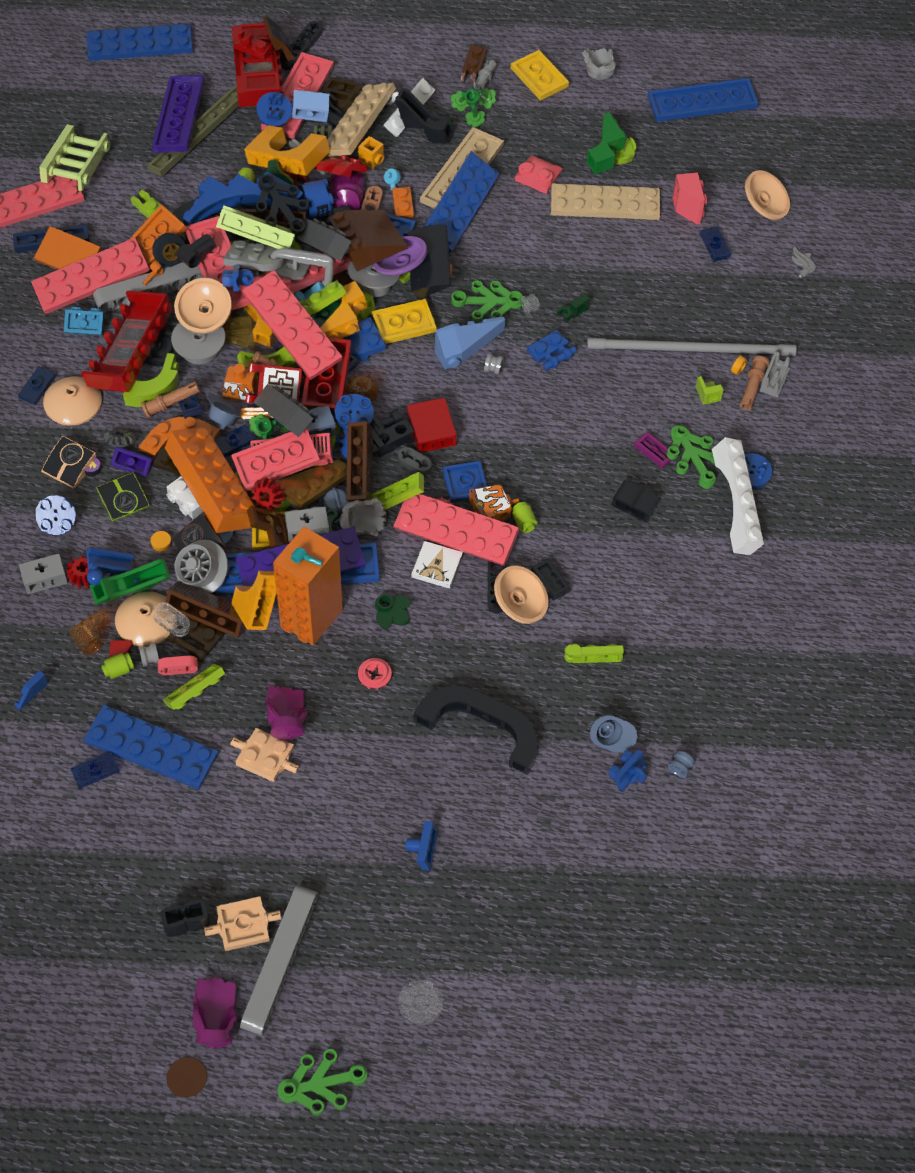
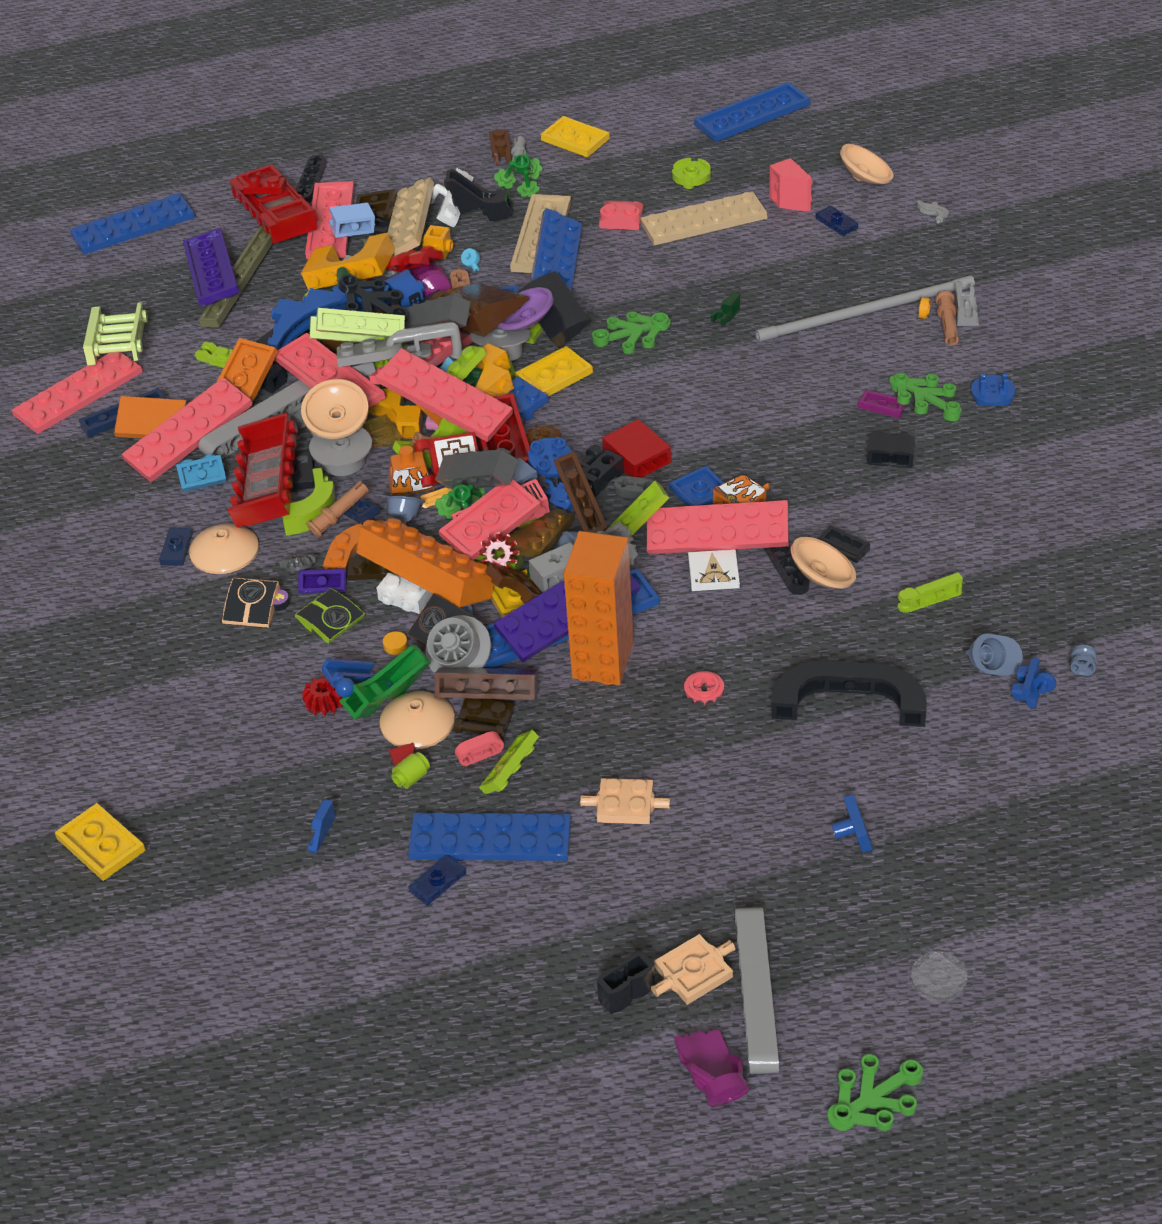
camera: 15 degrees left, 15 degrees down
(43, 573) = (277, 712): light grey brick -> none
(65, 514) = (274, 647): plate -> none
(88, 632) = (359, 751): clear orange arch -> none
(148, 654) = (440, 748): light grey wheel -> none
(156, 269) = (260, 399): orange hand -> none
(160, 245) = (269, 384): black wheel -> none
(172, 619) = (453, 703): clear plate -> none
(186, 1077) = (713, 1148): reddish brown piece -> none
(192, 253) = (298, 369): black piece -> none
(235, 278) = (361, 370): blue hips -> none
(235, 440) = (432, 524): plate -> none
(256, 601) = (546, 649): light orange arch -> none
(273, 117) = (313, 224): blue plate -> none
(278, 37) = (288, 173): slope -> none
(285, 712) = (629, 752): magenta hair -> none
(300, 554) = (591, 553): teal hand -> none
(394, 613) = (689, 625): dark green plate -> none
(403, 202) = (492, 275): orange plate -> none
(458, 343) = (626, 367): medium blue wedge -> none
(493, 364) = (671, 379): light grey wheel -> none
(524, 517) = (779, 492): lime brick -> none
(529, 303) = (678, 320): clear plate -> none
(548, 346) = (719, 352): blue plate -> none
(599, 64) = (632, 110): light grey hair -> none
(613, 139) = (684, 167): green arch -> none
(708, 391) = (908, 339): lime panel -> none
(745, 529) = (1020, 436): white arch -> none

